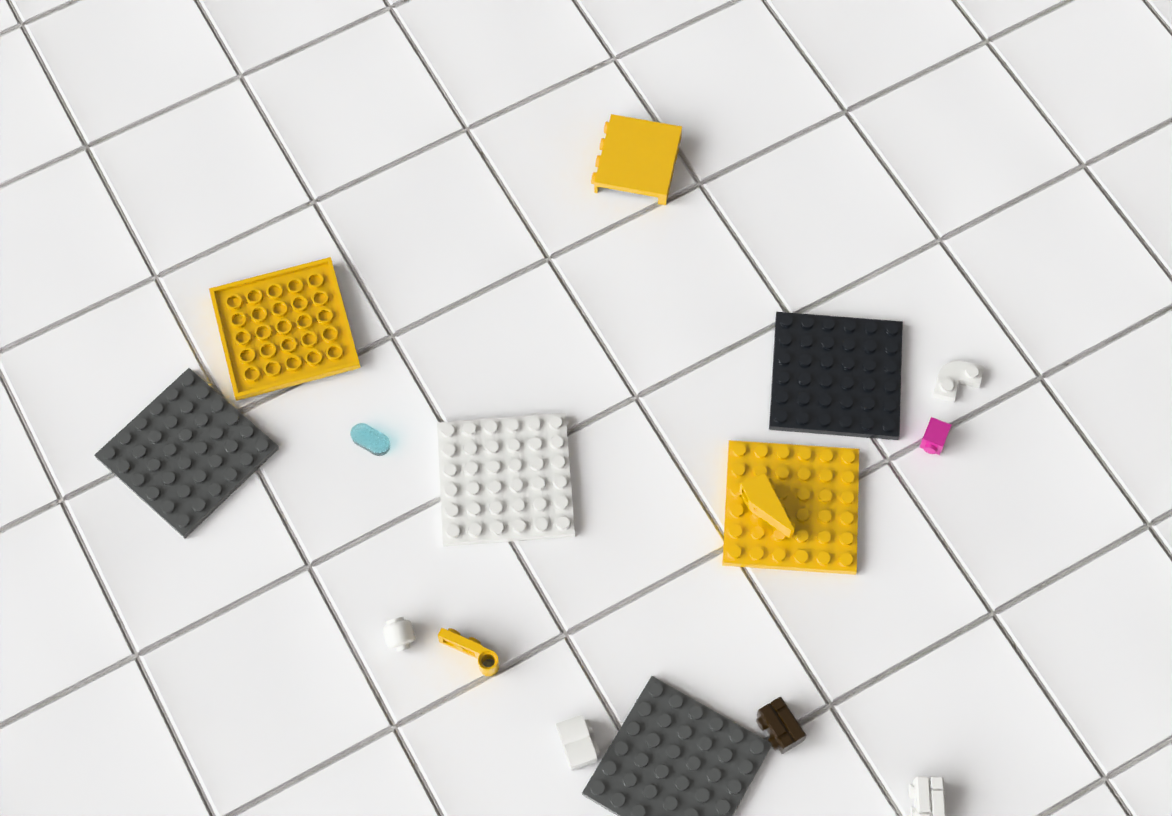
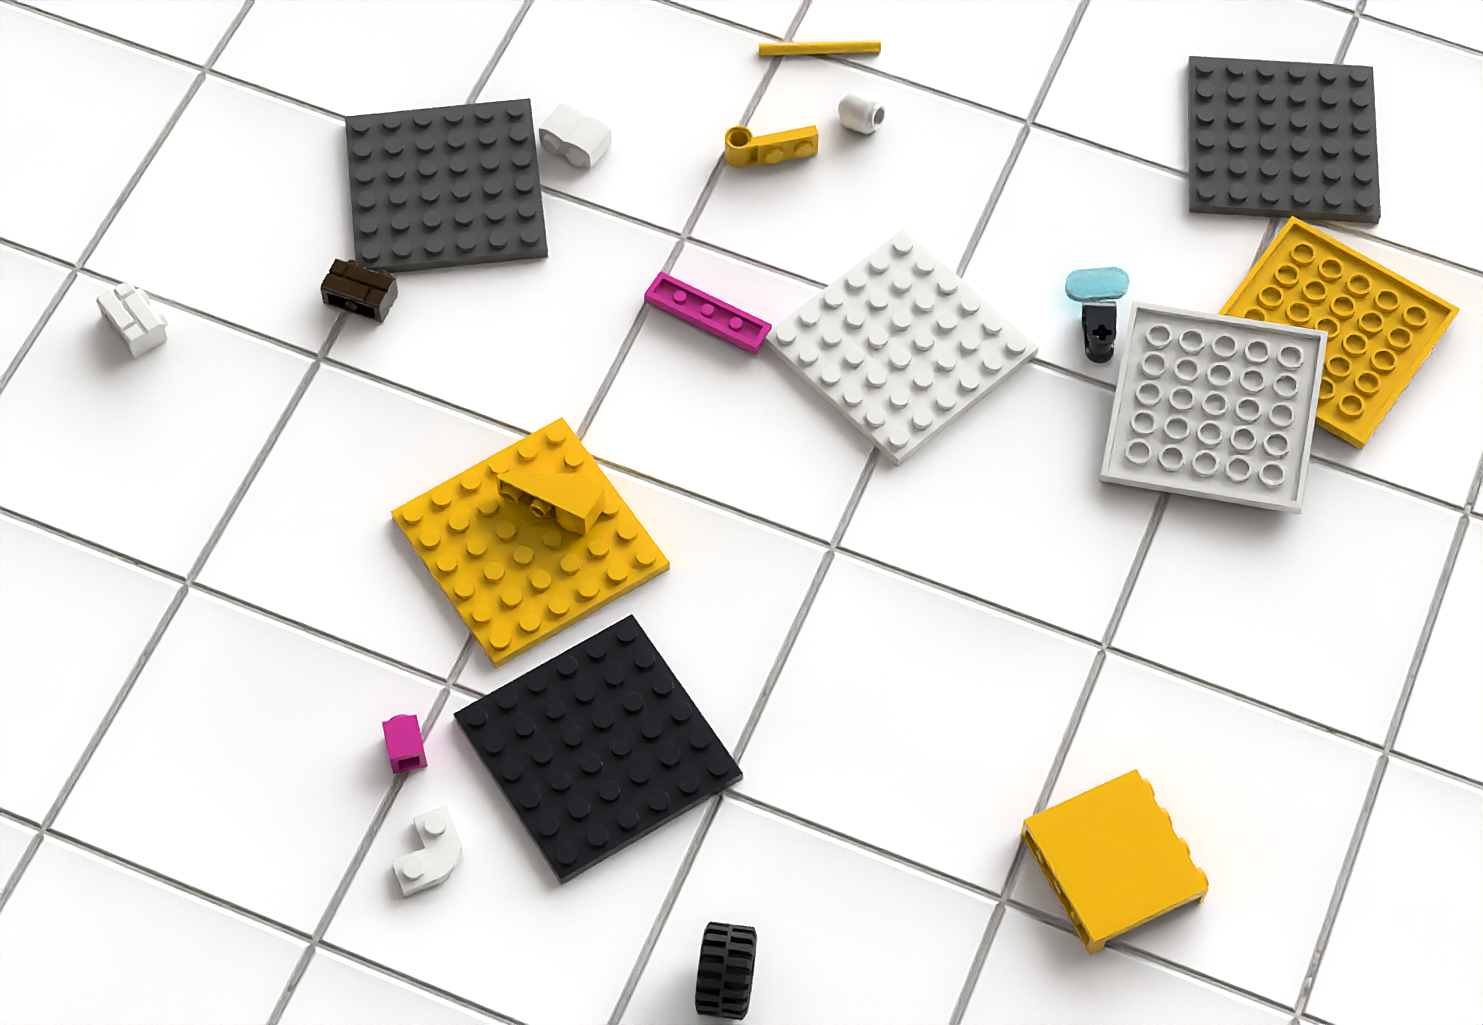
camera: 140 degrees right, 5 degrees down
(379, 703) = (827, 47): none -> yellow piece
(384, 323) = (1215, 407): none -> white plate
(393, 410) = (1099, 329): none -> black piece
(594, 569) = (707, 312): none -> dark pink plate
(860, 218) = (725, 970): none -> black tyre

